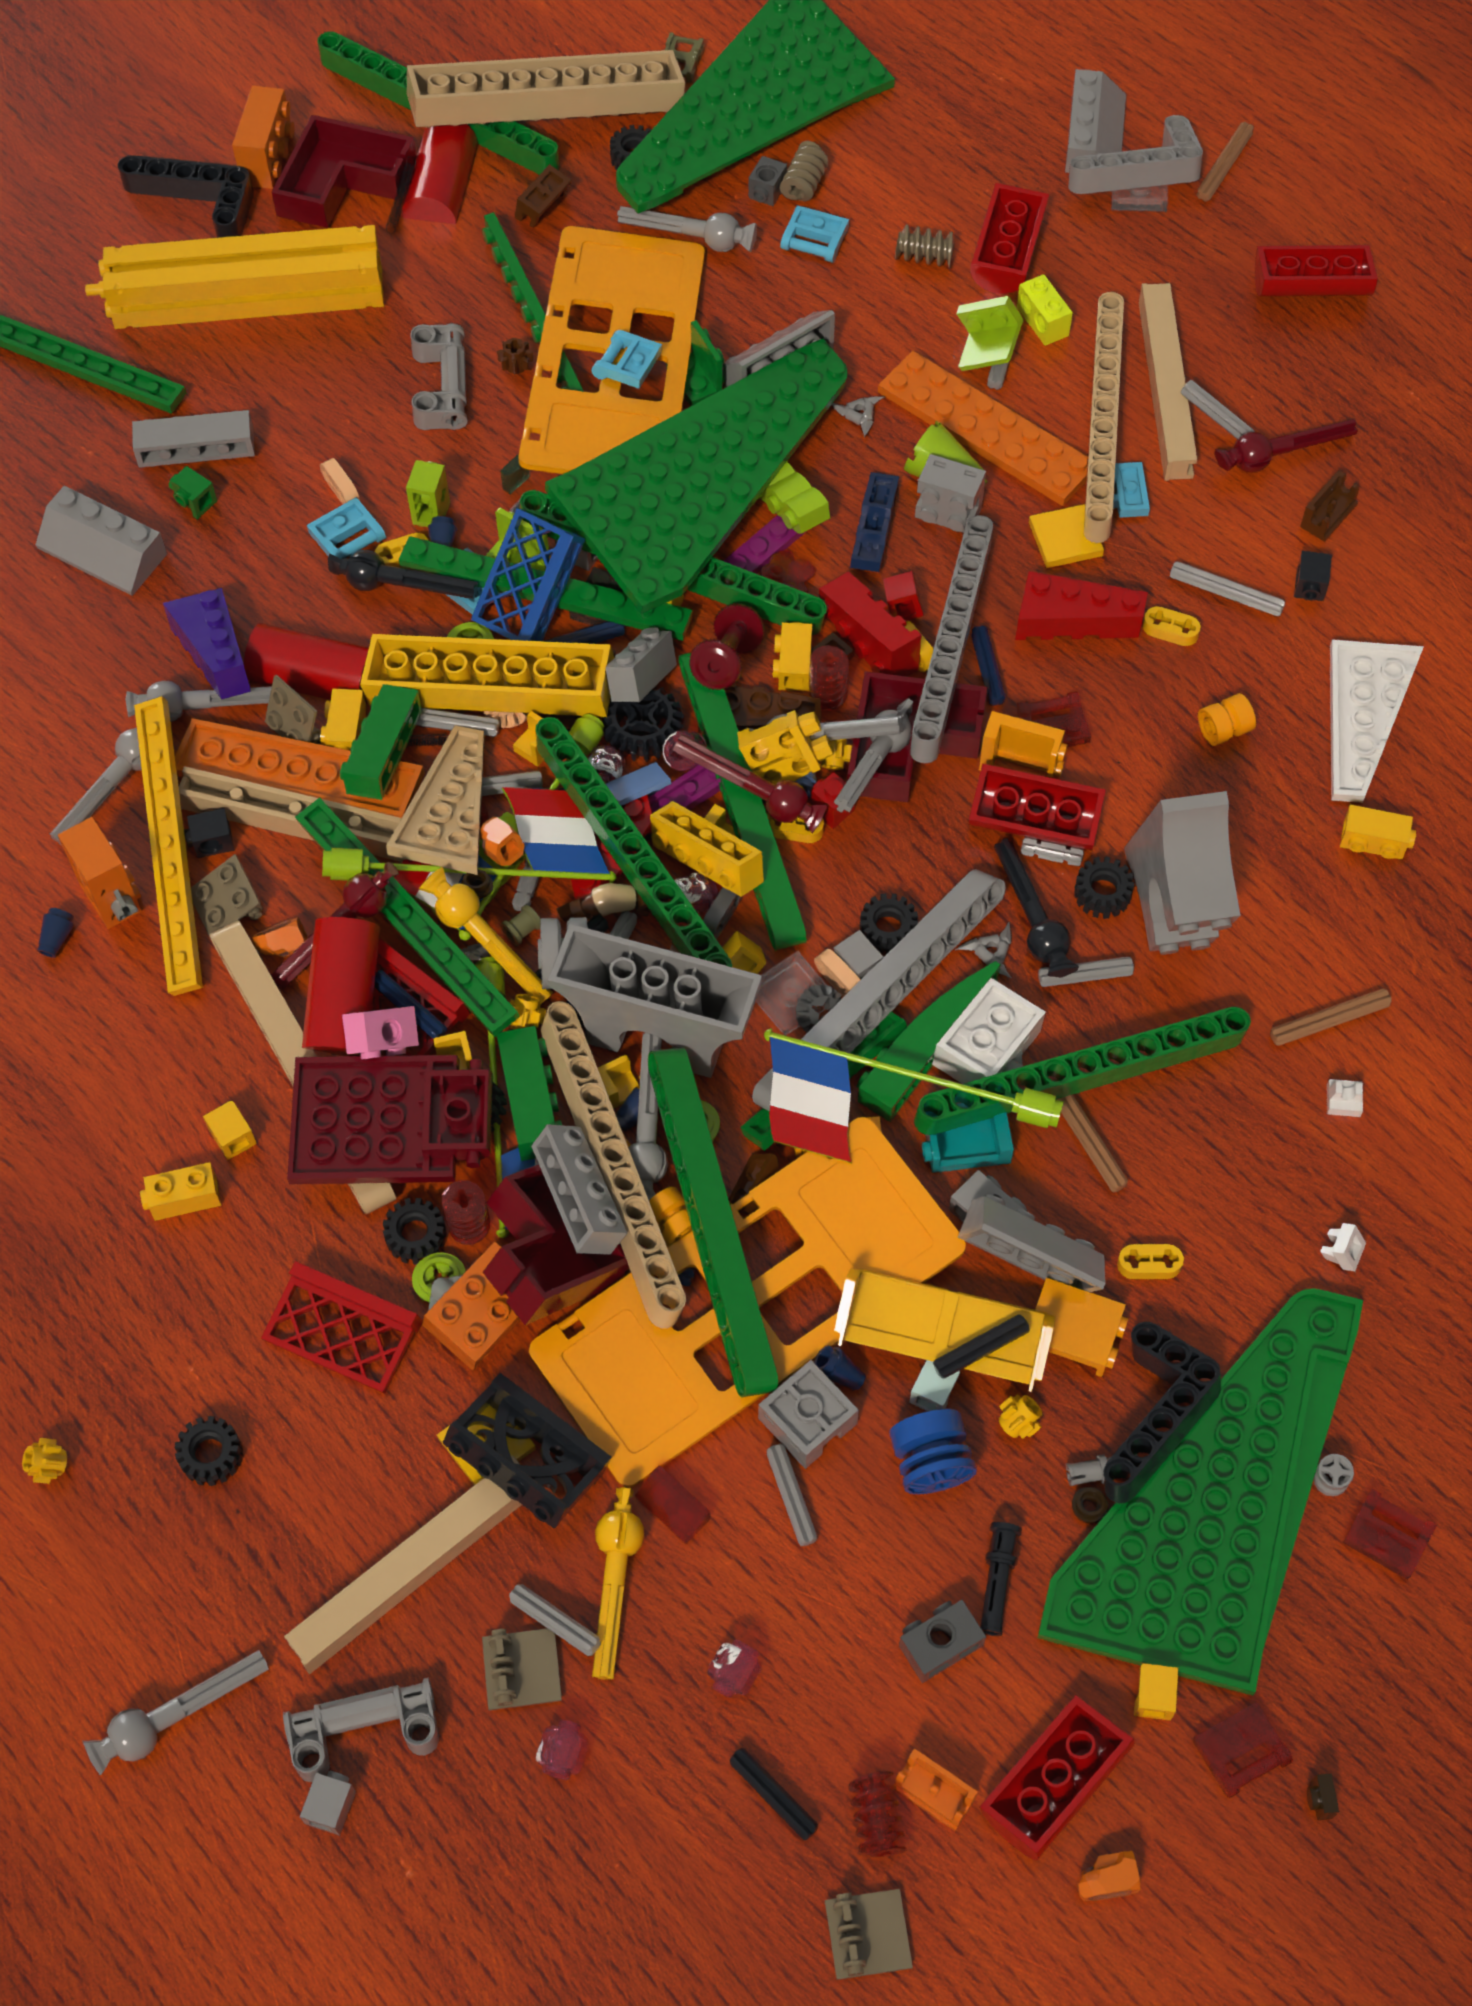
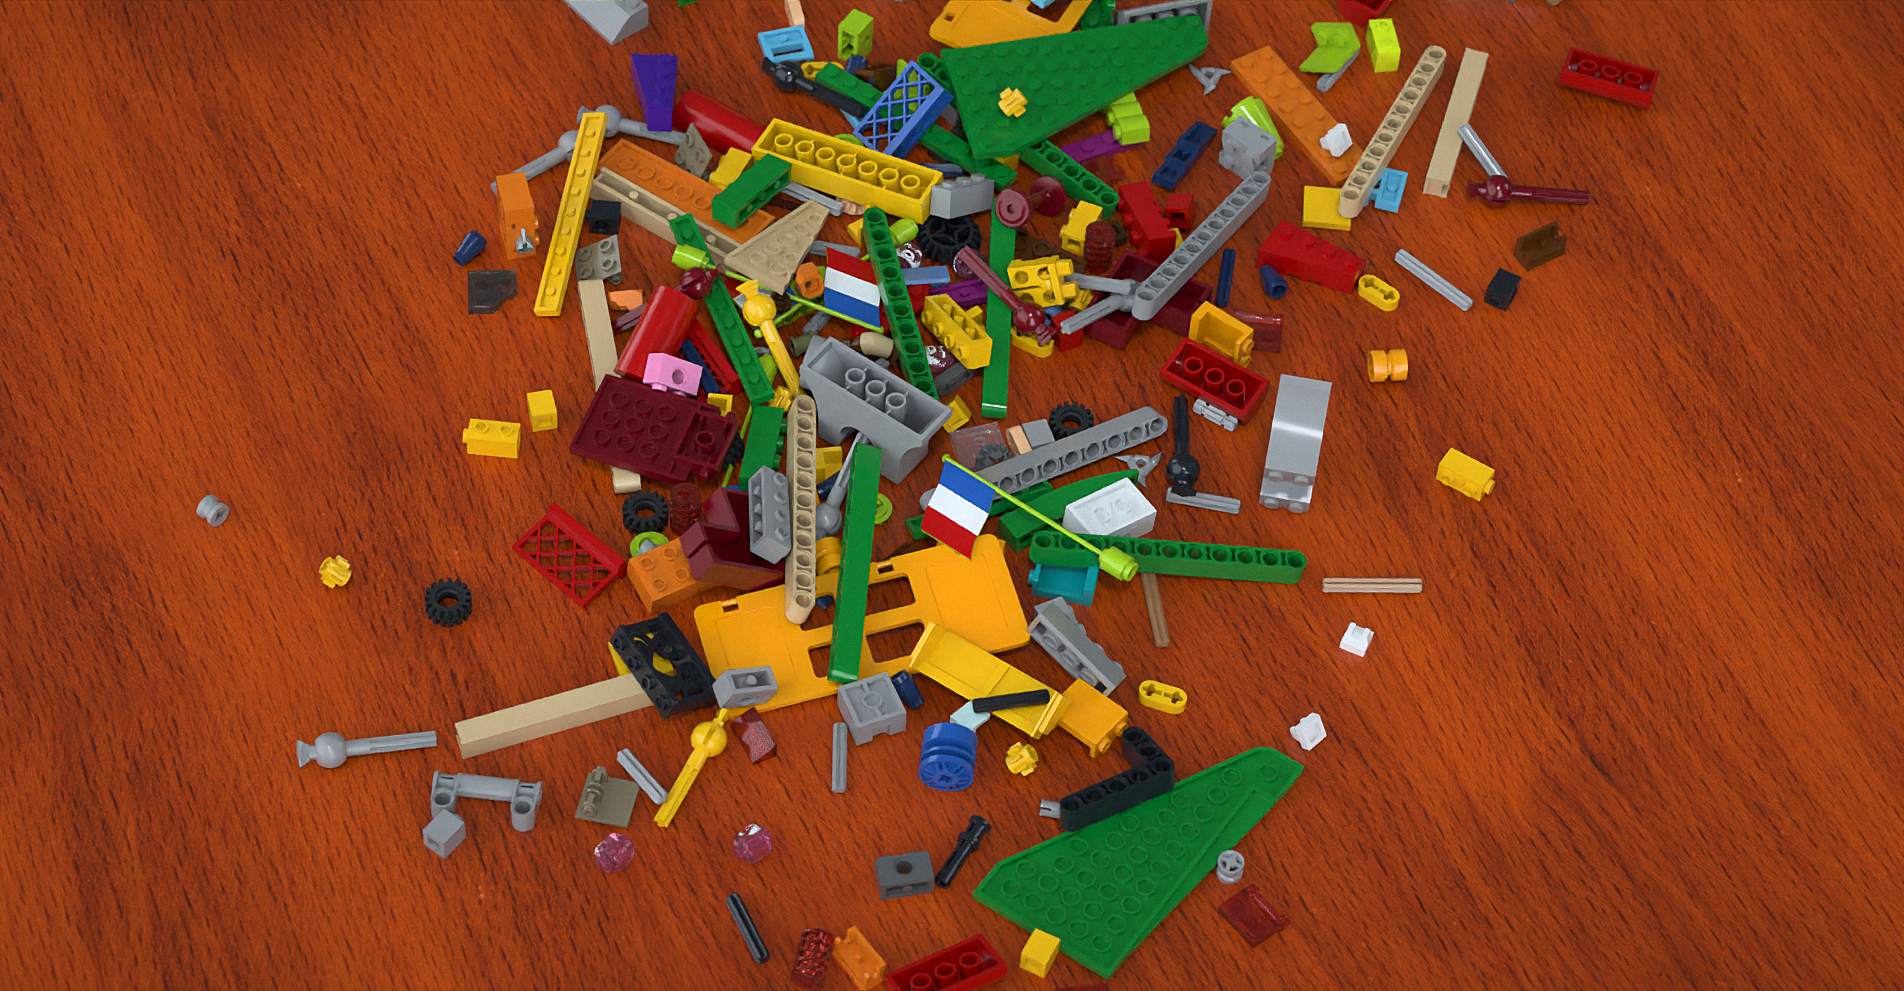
camera: 15 degrees right, 10 degrees down
(101, 980) = (490, 289): none -> clear smoke plate
(475, 533) = (878, 75): none -> reddish brown slope
(513, 475) = (925, 43): tile -> none
(641, 1447) = (745, 686): none -> light grey brick
(662, 526) = (1012, 102): none -> yellow gear
(1047, 447) = (1337, 140): none -> white tile
(1047, 654) = (1273, 282): none -> dark blue cone
(1093, 1495) = (1046, 823): dark brown plate -> none
(1104, 903) = (1242, 438): black tyre -> none
(1364, 701) = (1500, 387): white wing -> none

